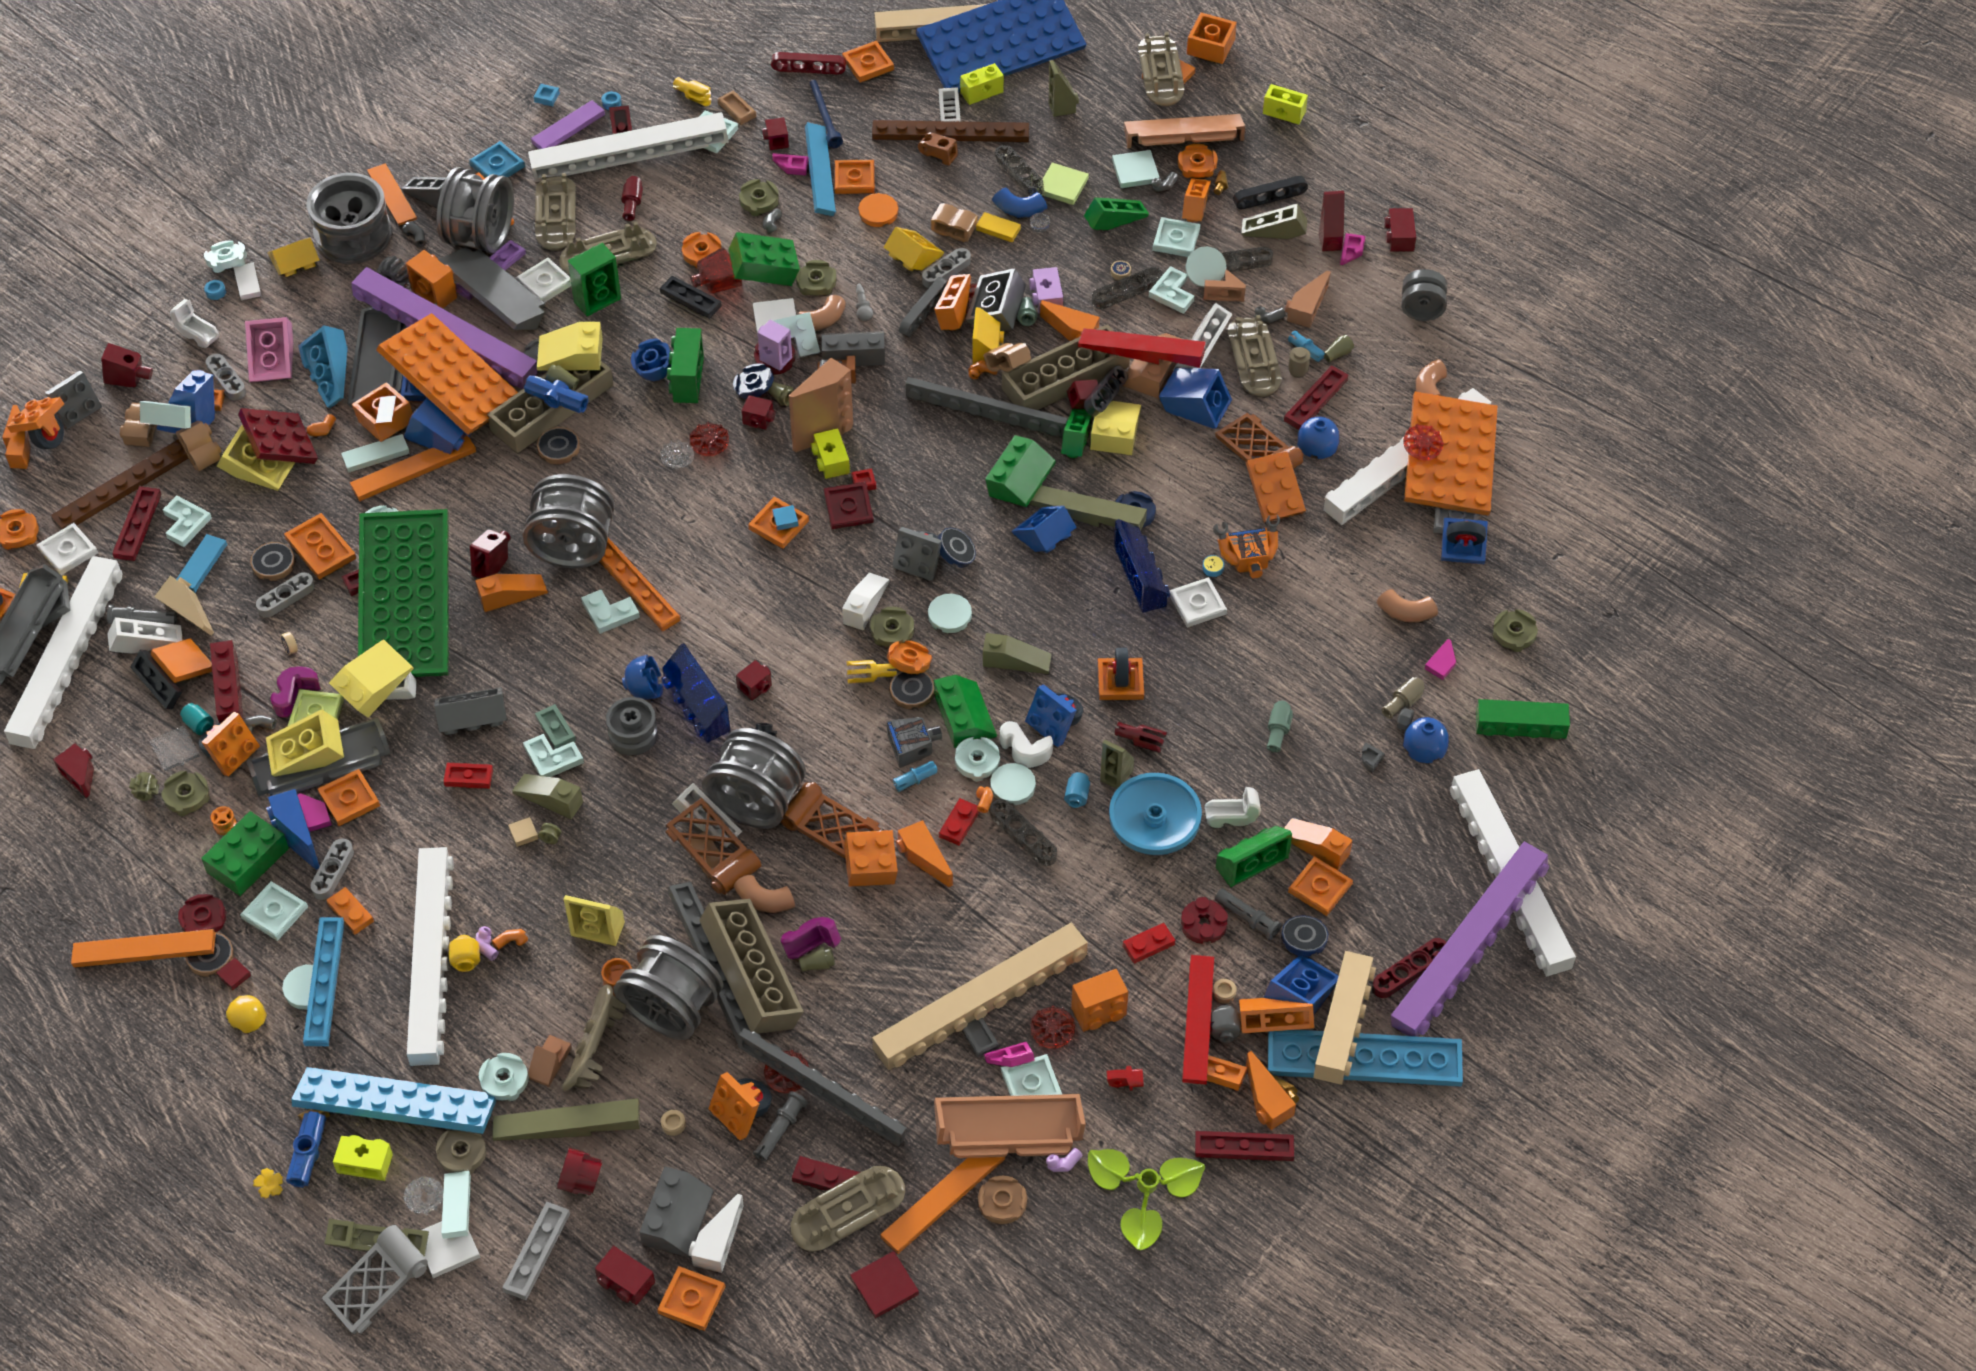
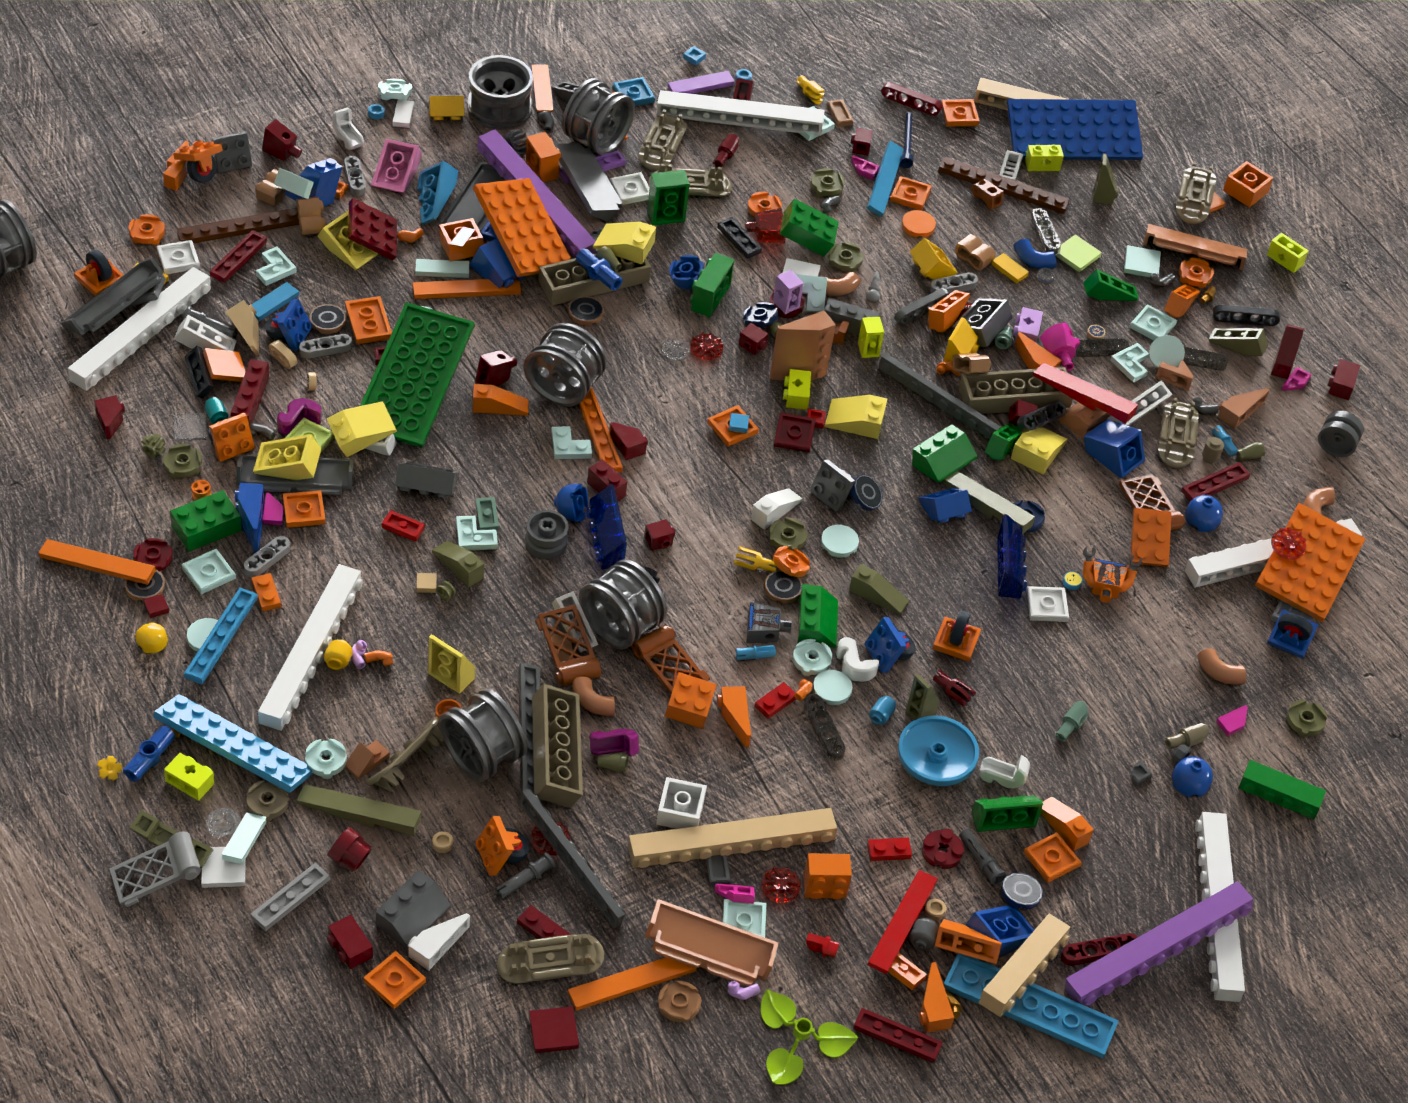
camera: 15 degrees right, 5 degrees down
(234, 584) = (291, 324): none -> blue plate
(242, 623) = (283, 354): none -> tan beam
(667, 637) = (602, 475): none -> dark red brick
(672, 582) = (628, 440): none -> dark red slope
(885, 364) = (870, 337): none -> neon yellow brick
(907, 460) = (857, 415): none -> light yellow slope
(912, 980) = (681, 804): none -> white brick
(1091, 298) = (1060, 343): none -> dark pink piece

